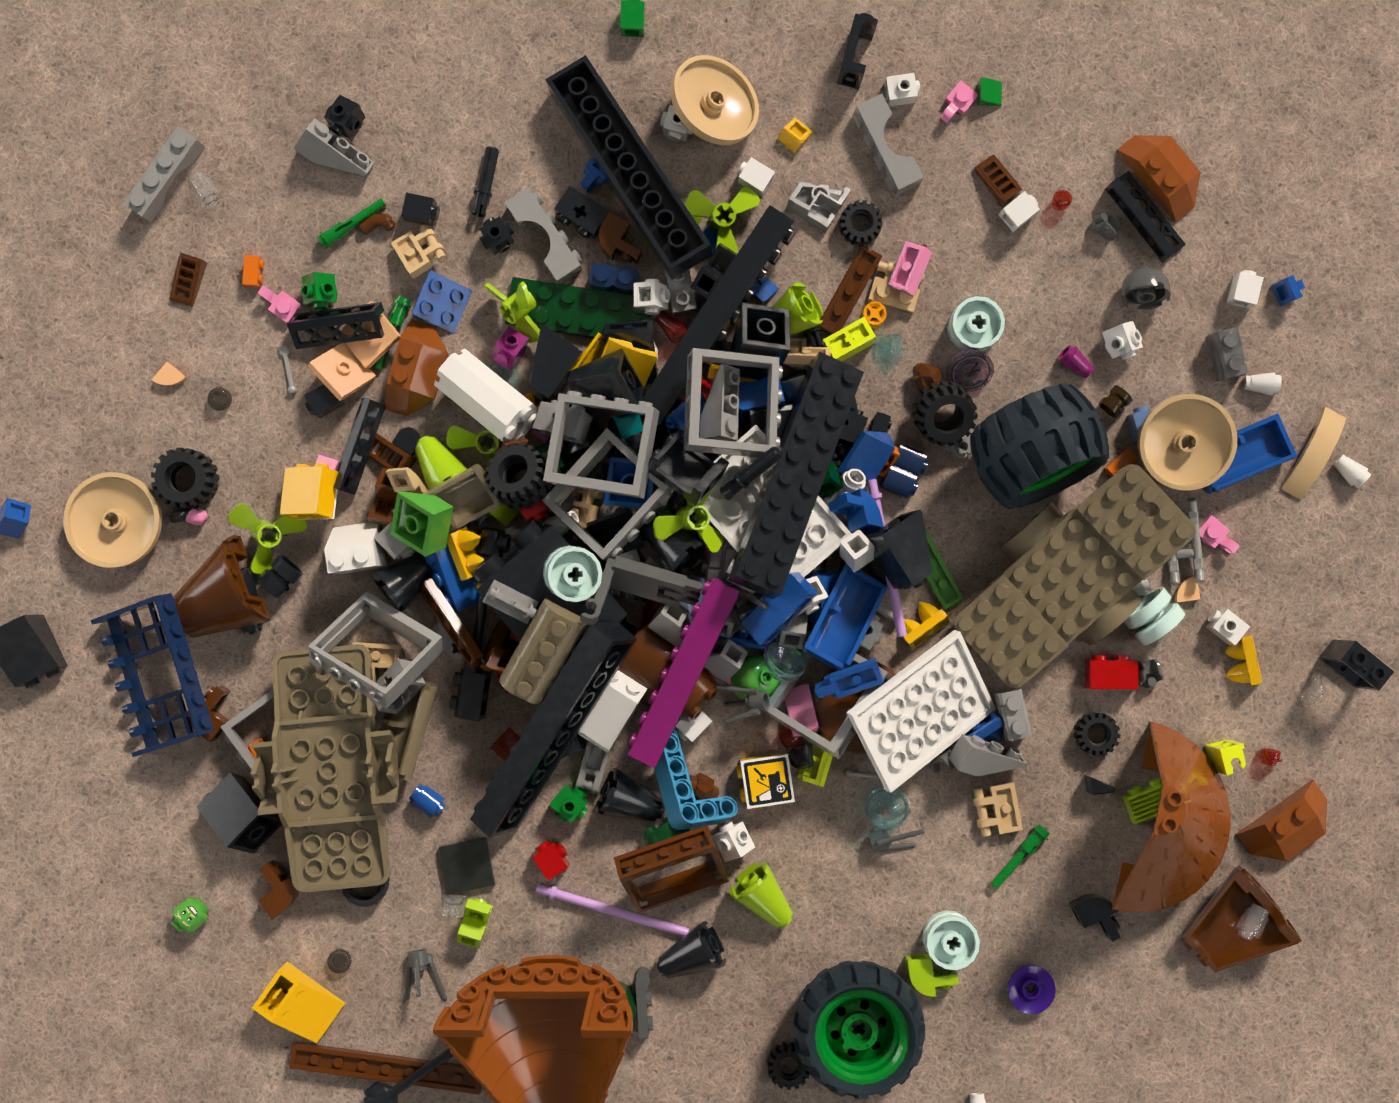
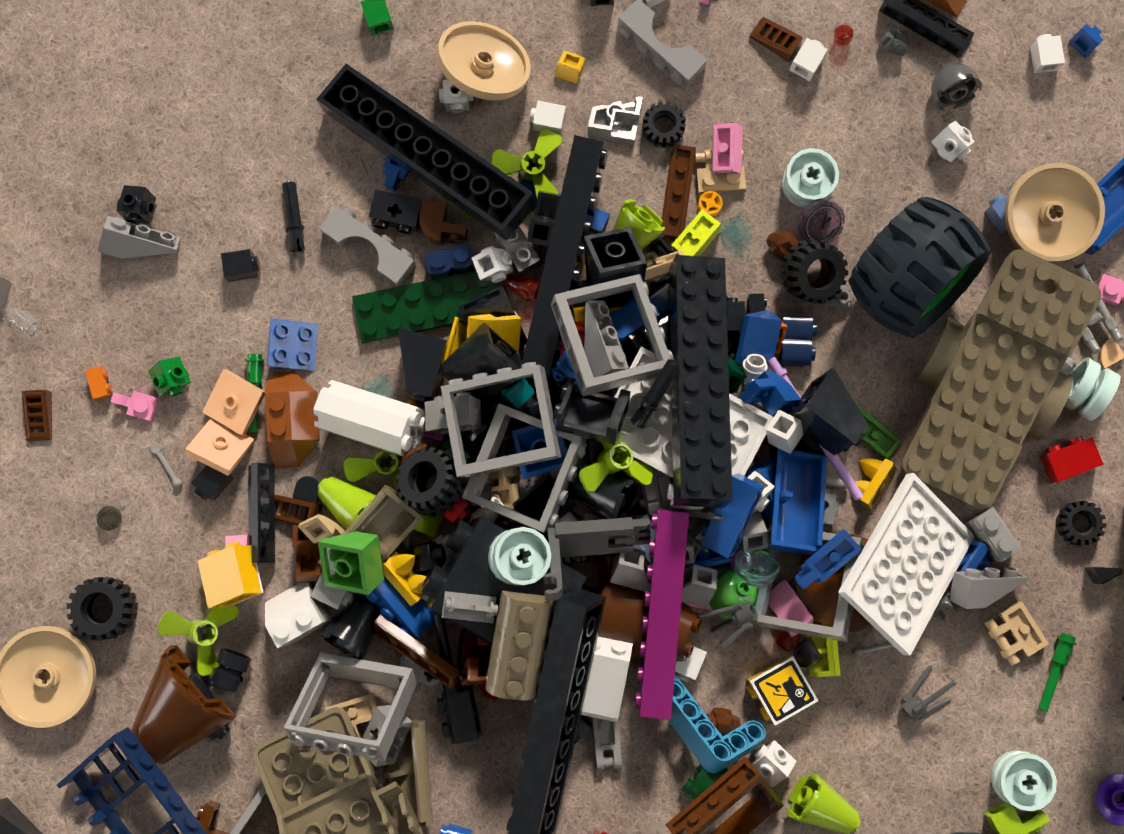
camera: 15 degrees left, 5 degrees down
(169, 376) = (51, 514): light nougat tile -> none
(189, 515) = (119, 643): arm -> none
(336, 317) = (189, 400): black fence -> none
(341, 229) = (170, 312): green pin -> none
(377, 220) = (203, 290): reddish brown arm -> none
(413, 256) = (247, 309): tan plate -> none
(498, 243) = (326, 269): black brick -> none
(504, 743) = (512, 752): clear red slope -> none
(510, 348) = (374, 364): magenta brick -> none
(516, 309) = (367, 325): lime piece -> none
(571, 795) = (591, 781): green brick -> none
(628, 799) = (653, 761): black cone -> none
(896, 800) = (916, 663): clear light blue piece -> none
(1075, 361) = (914, 177): magenta cone -> none
(1115, 401) = (969, 200): dark brown wheel -> none
(1124, 458) = (997, 257): orange piece -> none
(1149, 673) = (1107, 445): dark grey arm -> none
(1227, 354) = (1055, 118): flat silver brick -> none
(1263, 383) = (1100, 133): white cone -> none

